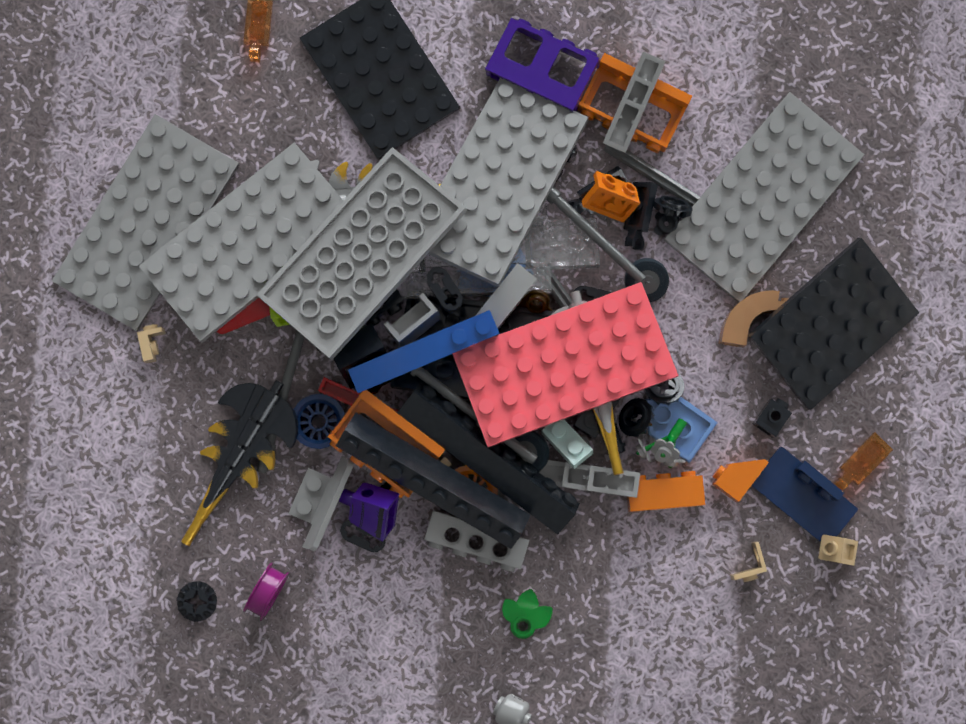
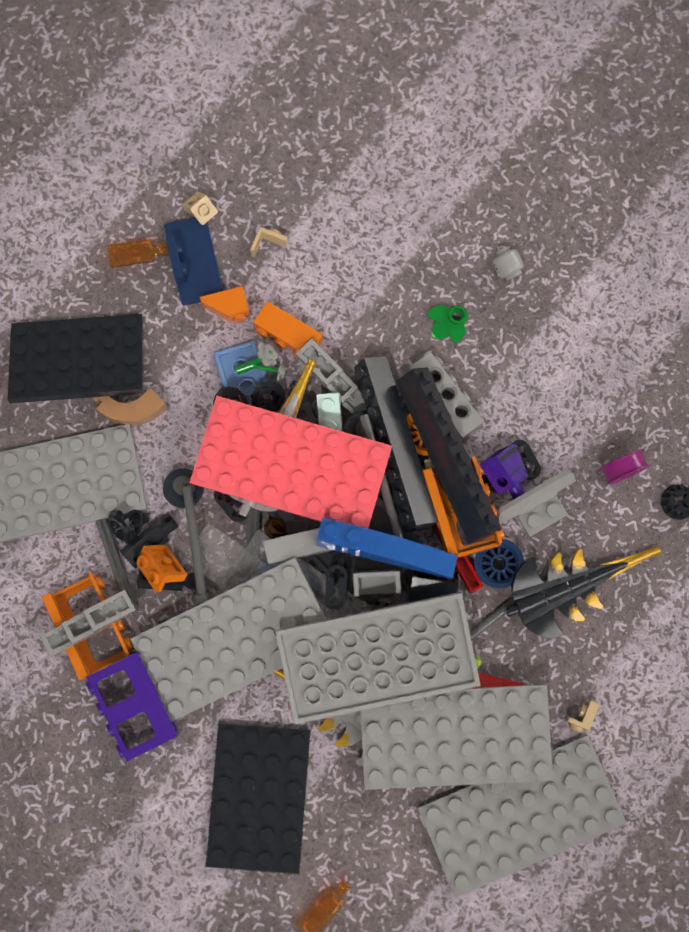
camera: 140 degrees left, 5 degrees down
(766, 423) = (177, 332): black brick -> none

